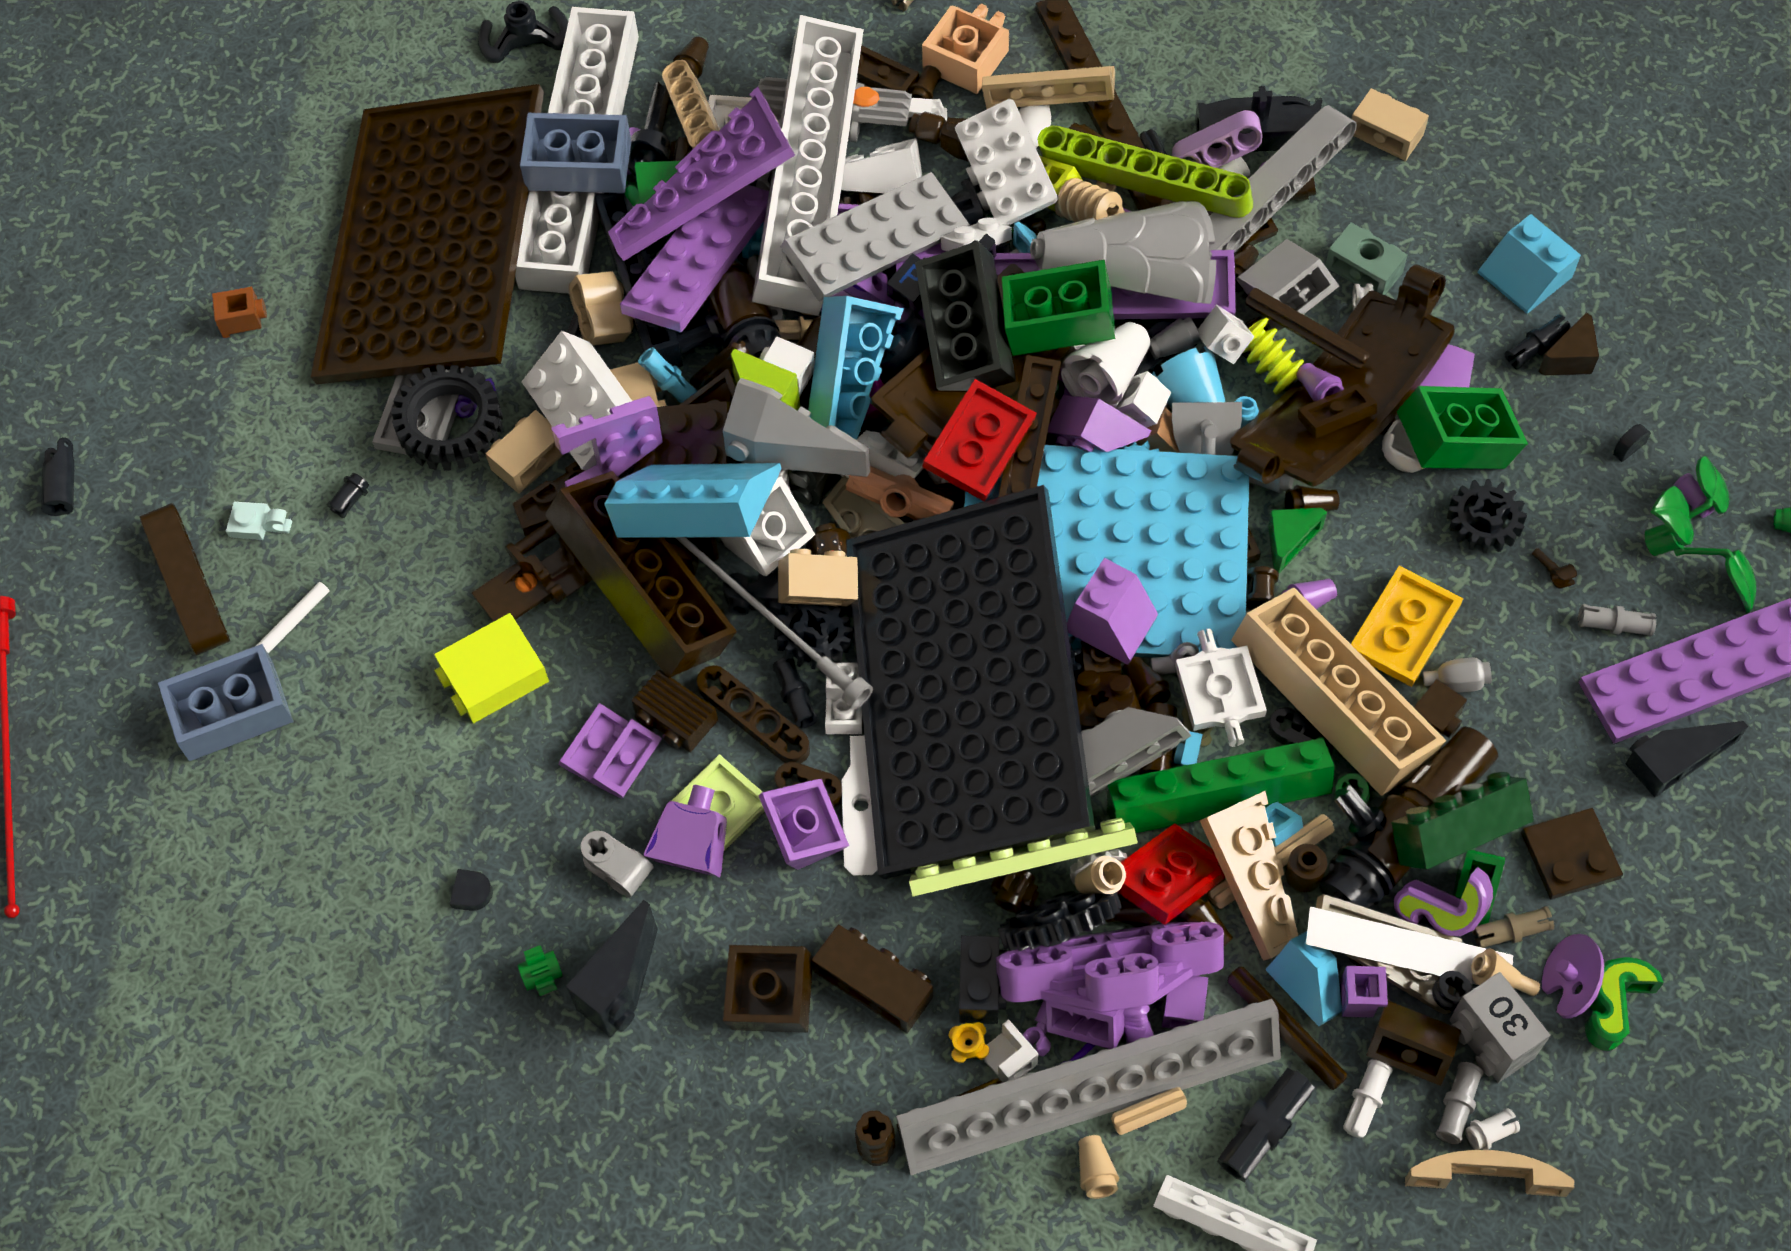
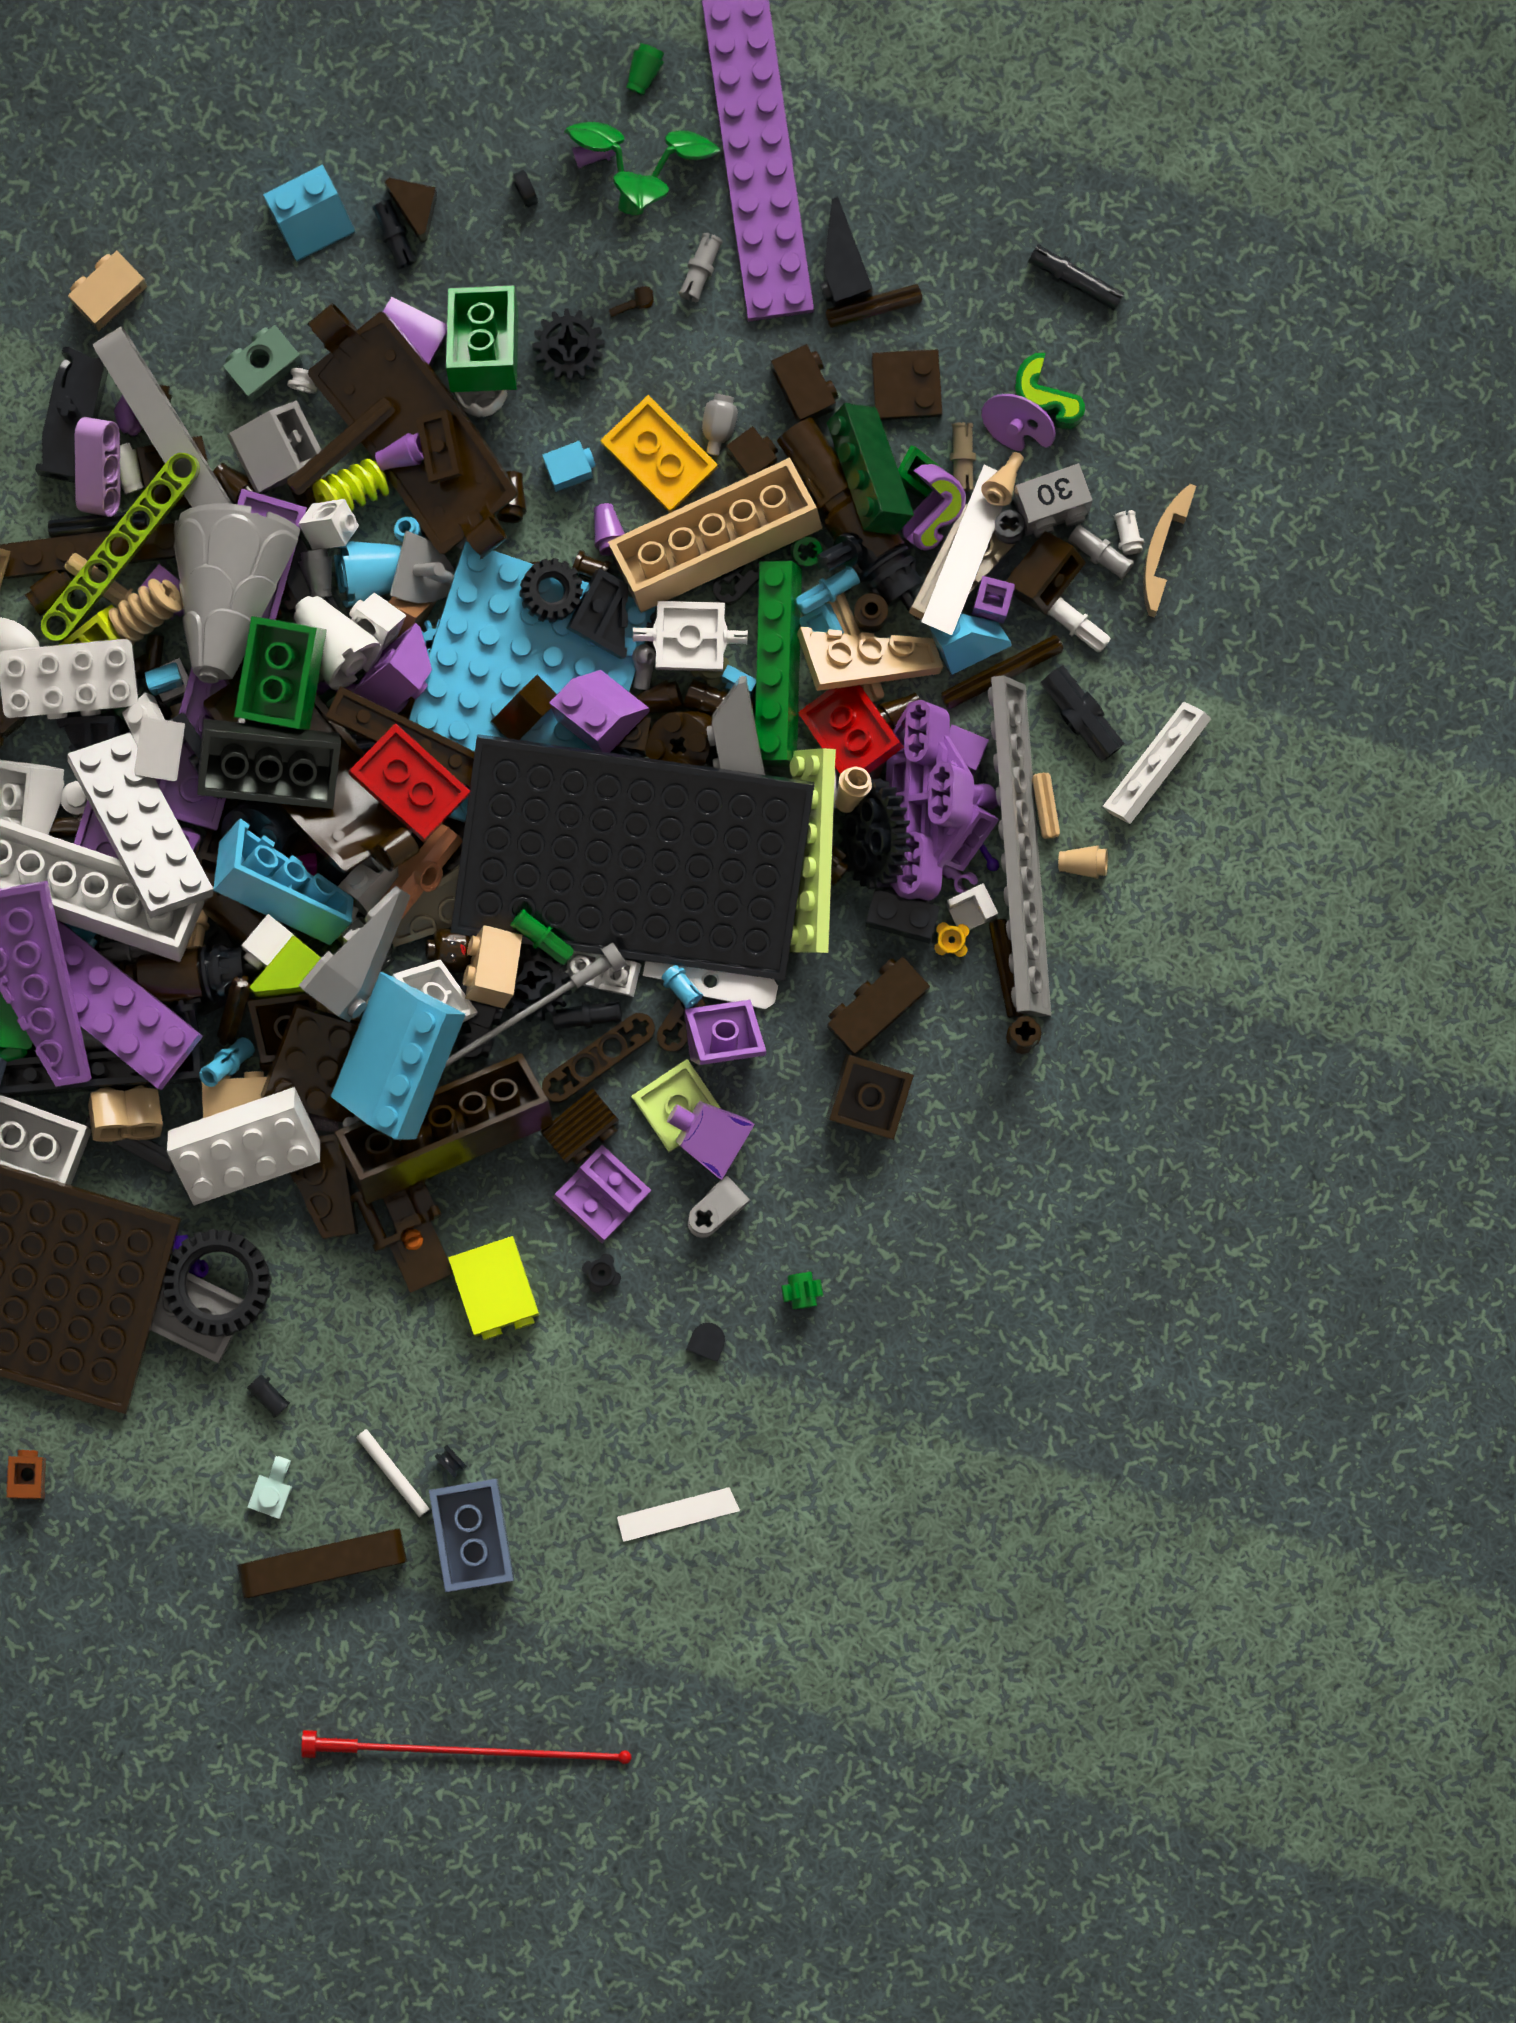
camera: 80 degrees left, 20 degrees up
(58, 480) = (176, 1676): black piece -> none
(281, 905) = (677, 1514): none -> white sticker
(304, 670) = (450, 1461): none -> black bush
(522, 760) = (597, 1282): none -> black plate
(524, 452) = (266, 1216): tan brick -> none
(613, 978) = (831, 1224): black slope -> none
(616, 438) = (320, 1124): medium lavender wing -> none
(850, 765) = (682, 987): none -> medium azure pin
(861, 619) = (542, 937): none -> green axle
(904, 285) = (194, 807): black brick -> none
(954, 232) = (159, 748): none -> white sticker
(1092, 542) = (524, 709): none -> dark brown slope
(1216, 599) = (602, 613): none -> black wing
(1230, 522) = (560, 572): none -> black tyre
(1291, 531) = (541, 526): green slope -> none
(1315, 814) = (827, 590): none -> medium azure axle
(1362, 543) = (569, 465): none -> medium azure brick
(1534, 744) = (804, 384): none -> dark brown brick
(1645, 799) = (874, 305): none -> dark brown axle
(1765, 987) = (1076, 277): none -> black pin

